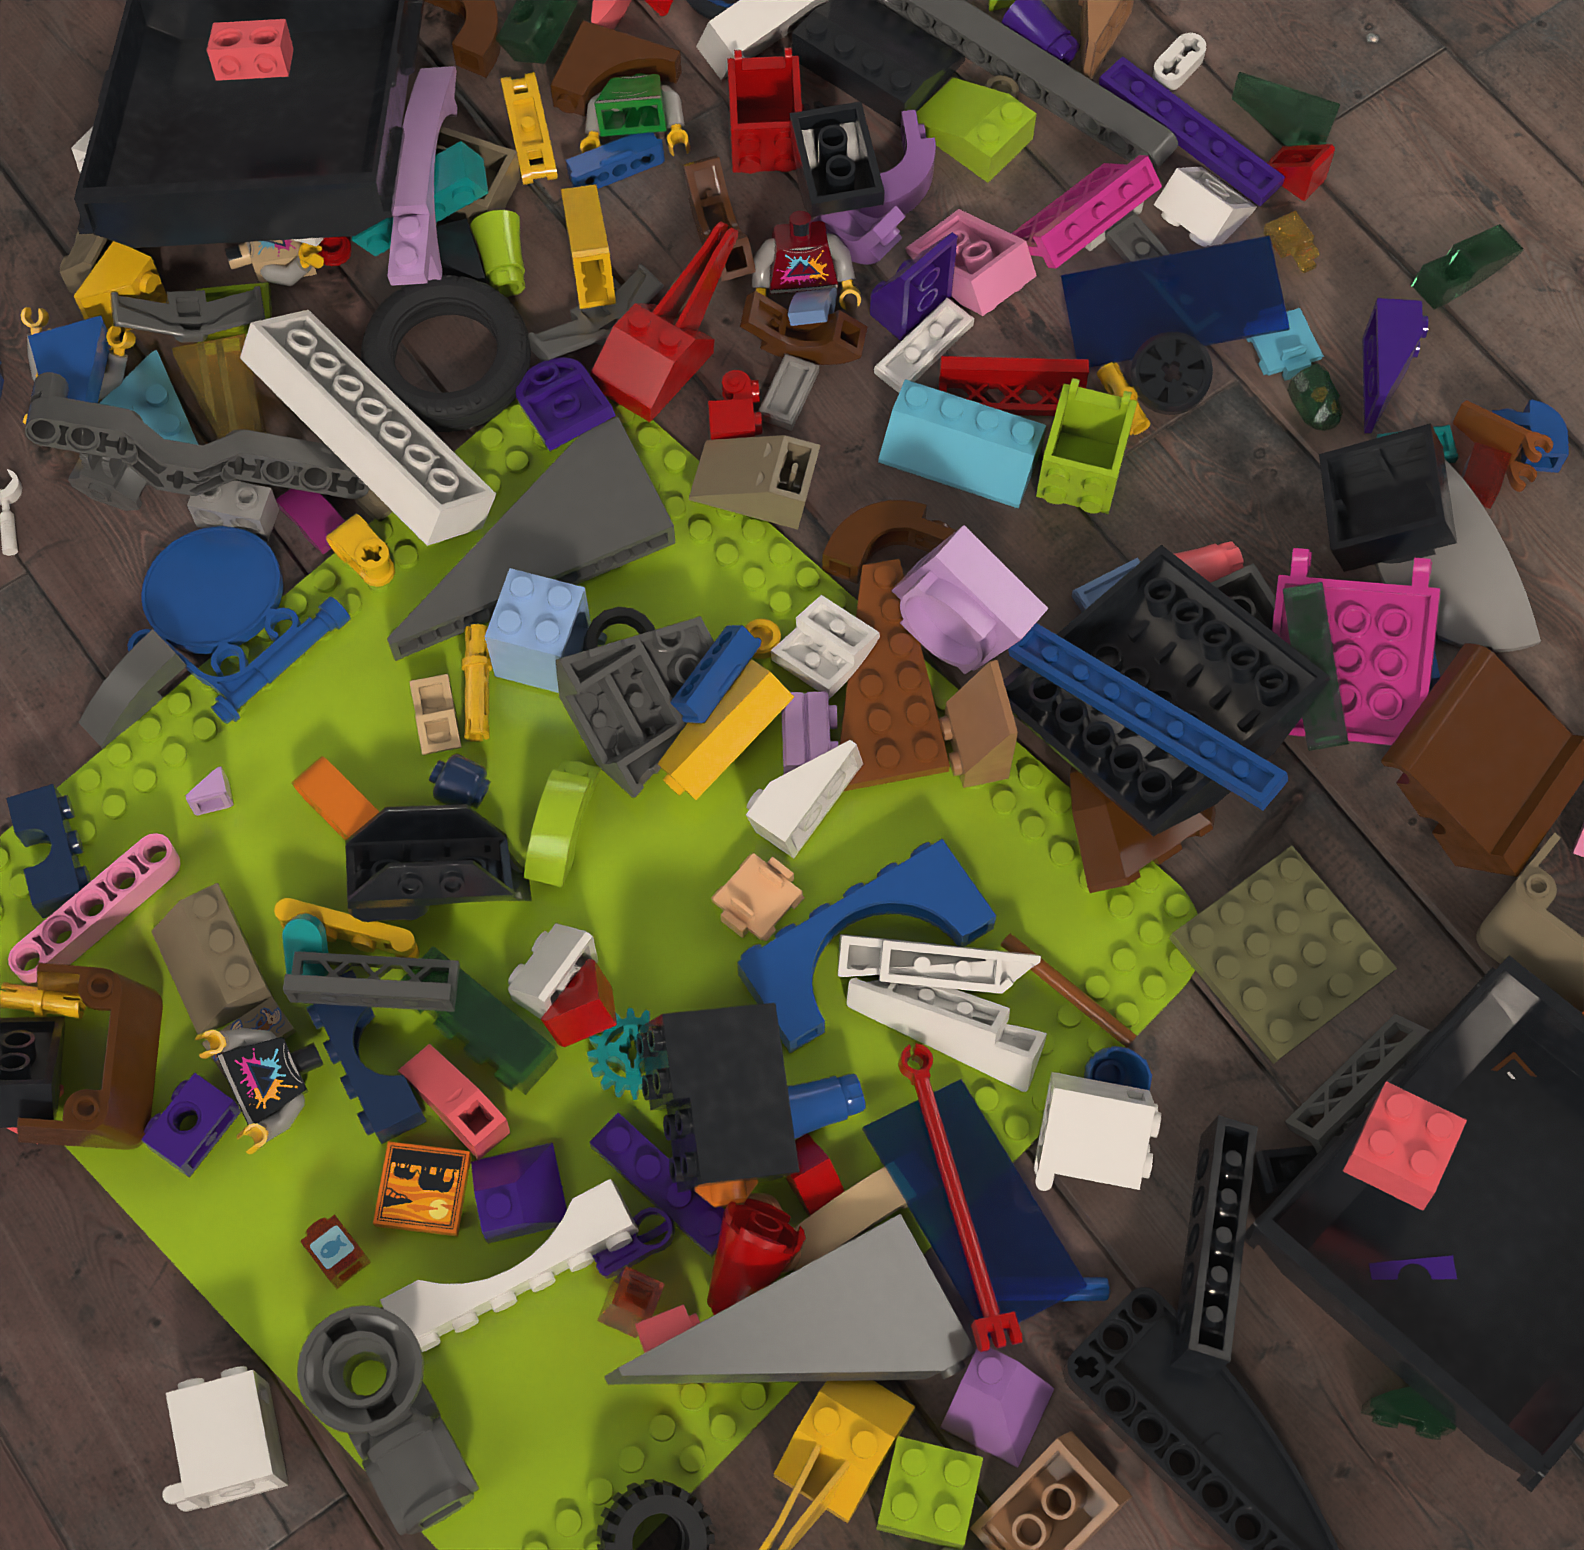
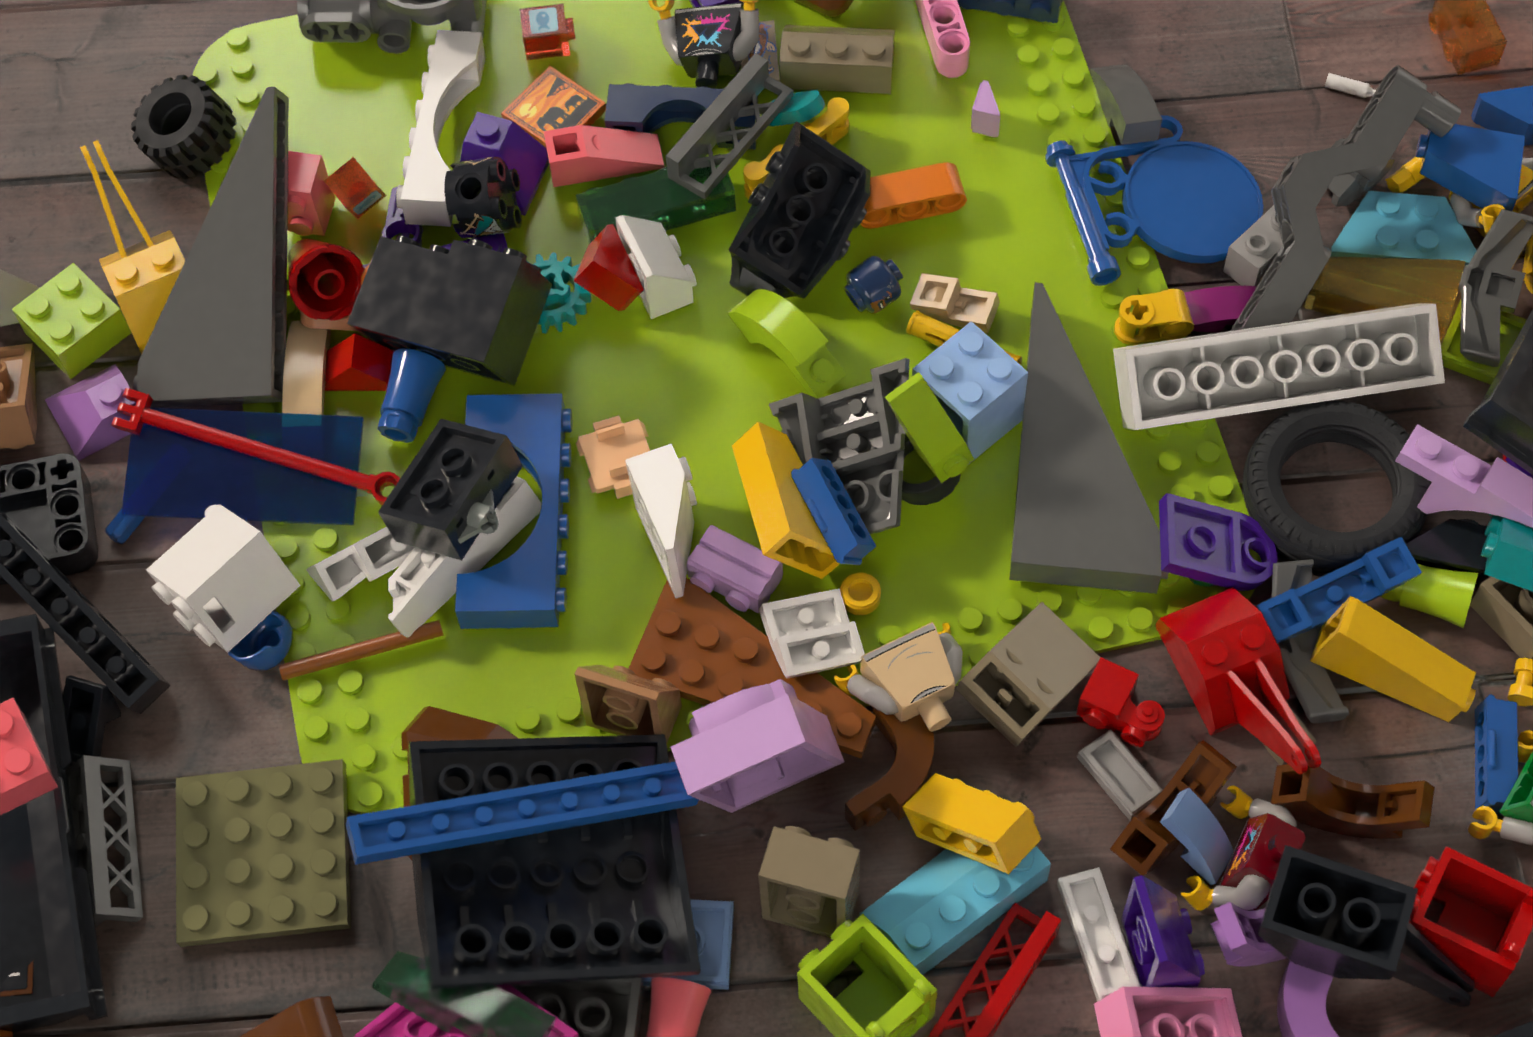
camera: 125 degrees right, 5 degrees down
(546, 303) = (1317, 601): none -> blue slope
(575, 1161) = (482, 197): none -> black brick
(611, 612) = (929, 428): none -> lime slope
(821, 542) = (909, 676): none -> tan torso
(903, 966) = (451, 489): none -> black piece
(909, 443) = (972, 822): none -> yellow brick
(1038, 518) = (808, 880): none -> dark tan brick

